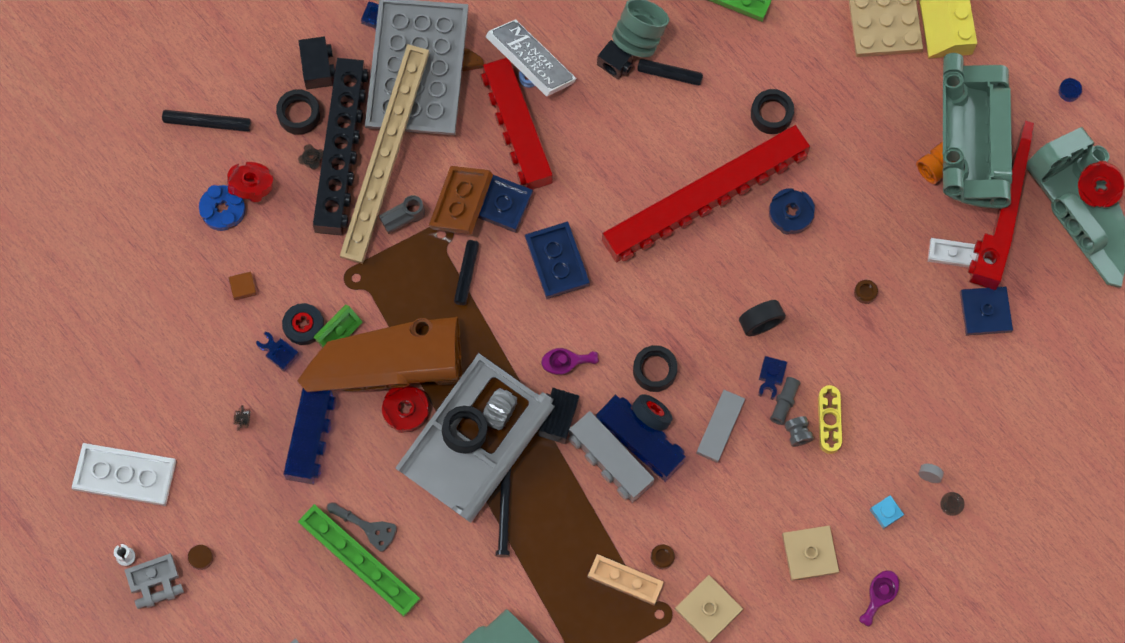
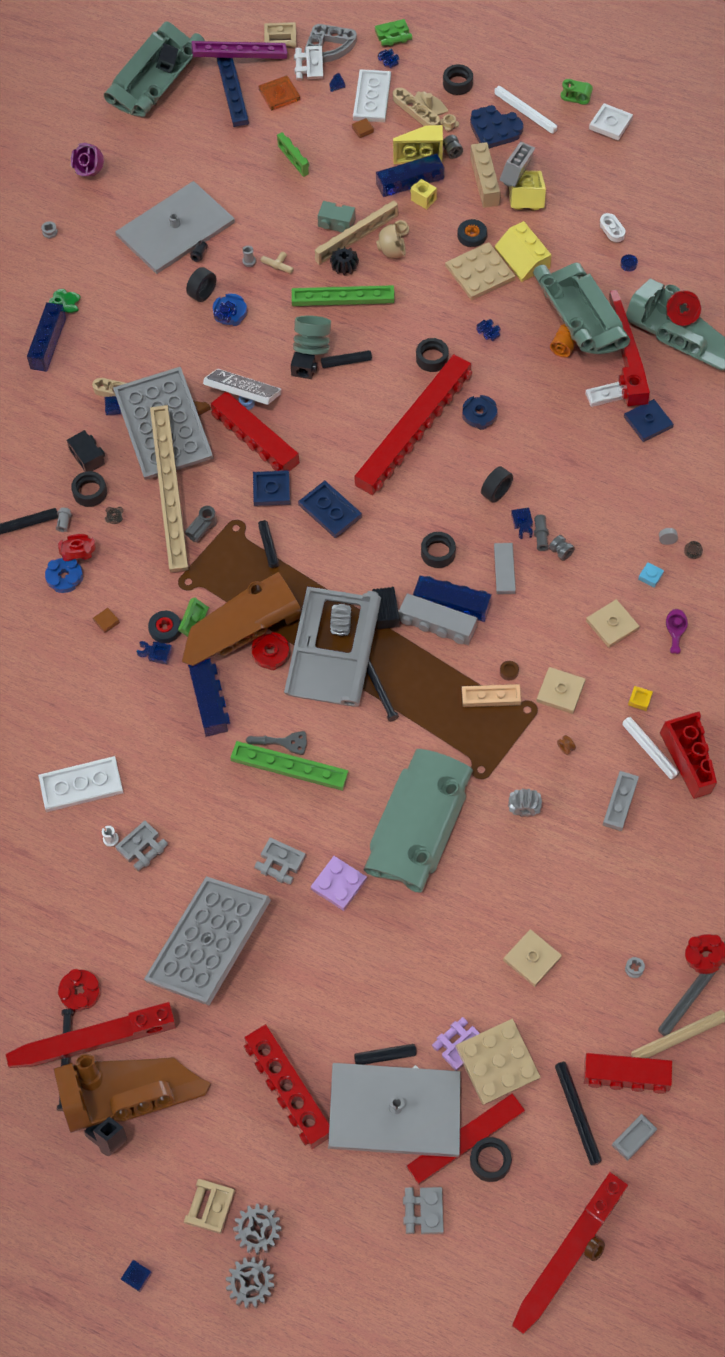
camera: 20 degrees left, 10 degrees down
(200, 557) = (168, 815): reddish brown tile -> none
(241, 418) = (151, 707): clear smoke plate -> none
(252, 137) = (63, 519): none -> light grey pin
(346, 71) = (147, 551): black brick -> none
(461, 200) = (240, 496): dark orange plate -> none
(464, 412) = (323, 653): black tyre -> none
(562, 361) = (369, 572): magenta piece -> none
(652, 412) = (452, 576): black bush -> none
(823, 436) = (579, 540): light yellow beam -> none
(855, 109) = (488, 331): none -> clear blue piece
(866, 291) = (559, 442): reddish brown tile -> none
(1073, 35) = (614, 230): none -> white plate

